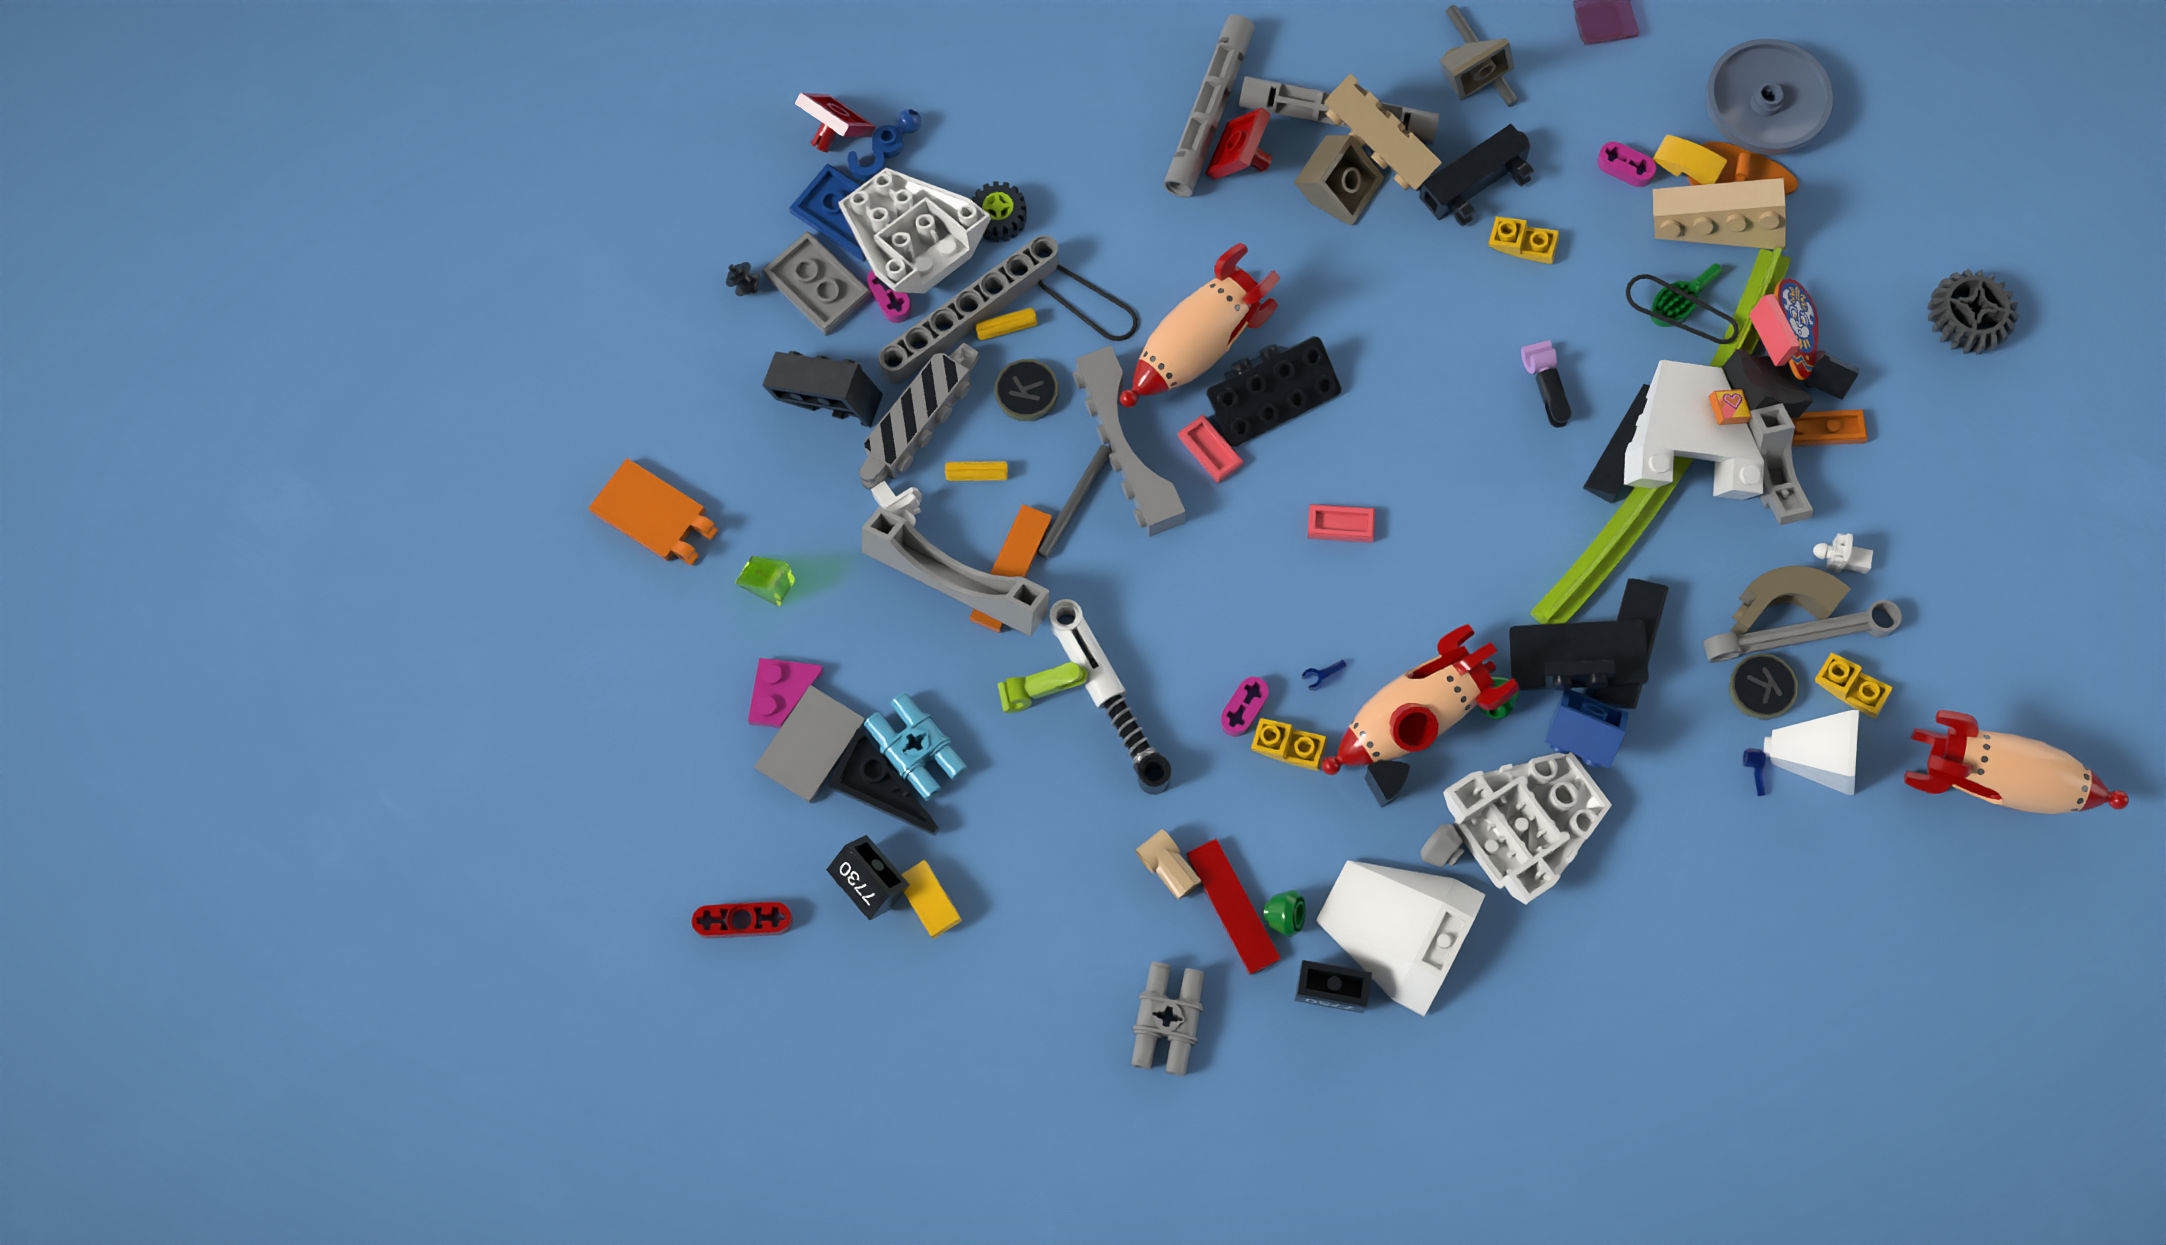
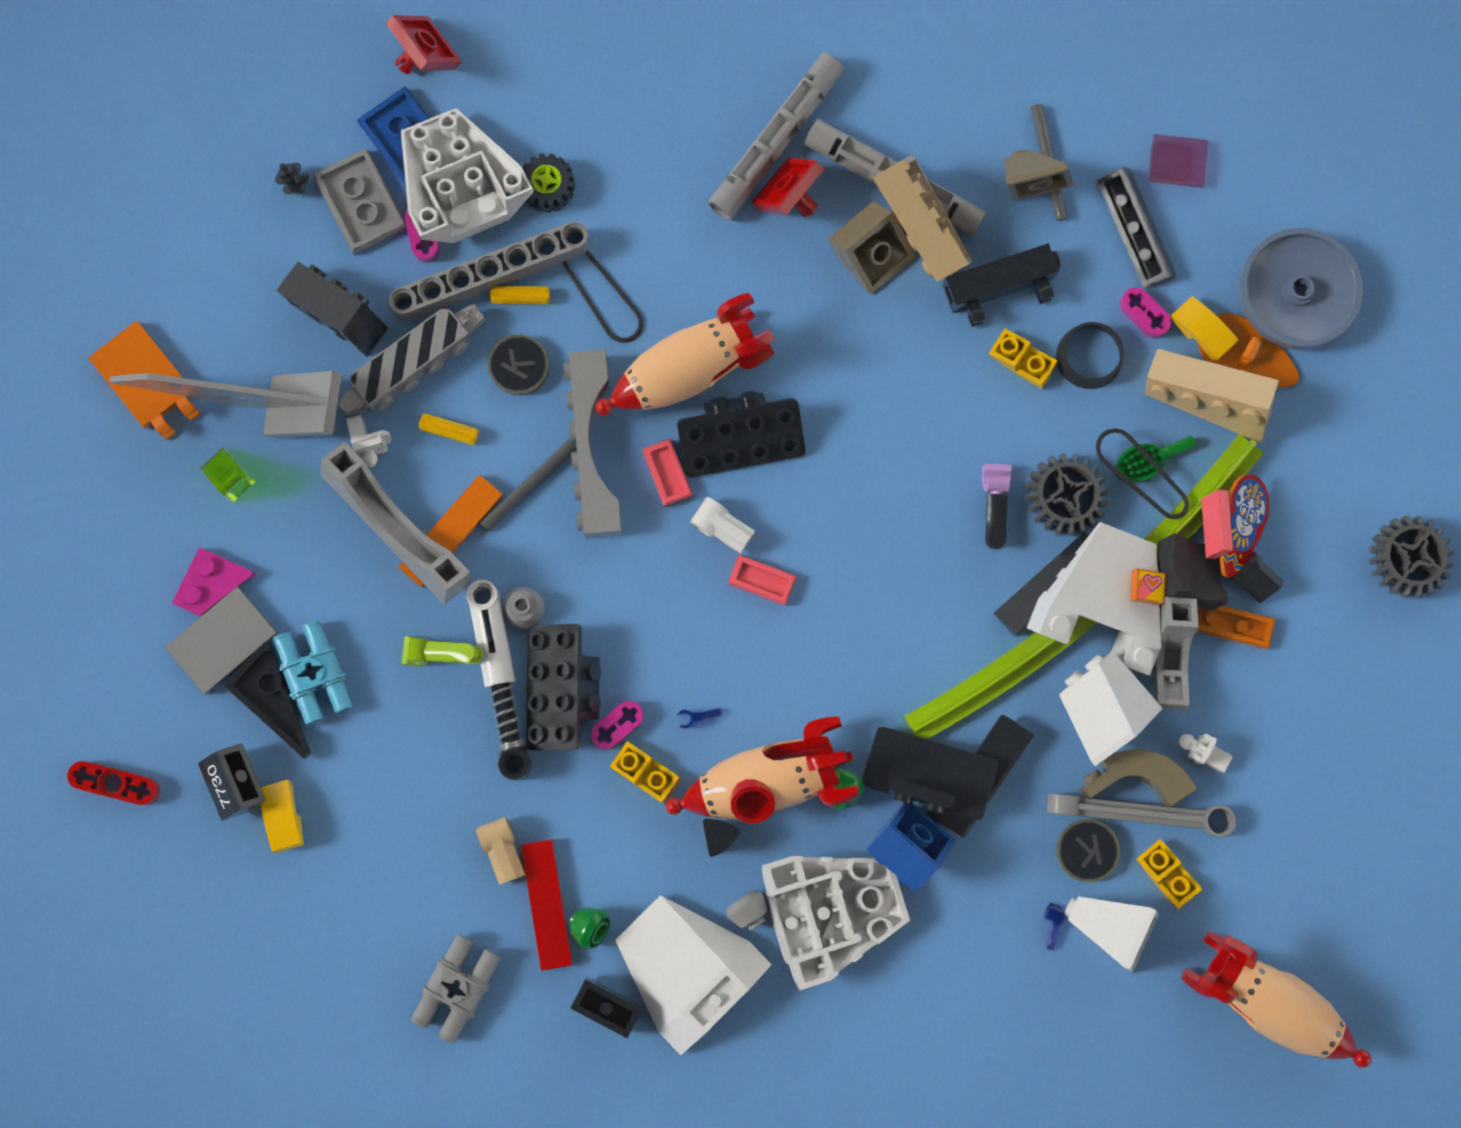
camera: 10 degrees right, 10 degrees up
(810, 489) = (295, 403): none -> light grey piece
(886, 143) = (464, 82): blue piece -> none
(1109, 628) = (519, 616): none -> light grey cone
(1173, 685) = (559, 687): none -> black bracket
(1275, 479) = (716, 521): none -> white piece
(1584, 243) = (1077, 379): none -> black tyre
(1588, 91) = (1136, 227): none -> black slope
(1614, 334) = (1071, 507): none -> dark grey gear
(1731, 533) = (1107, 706): none -> white slope

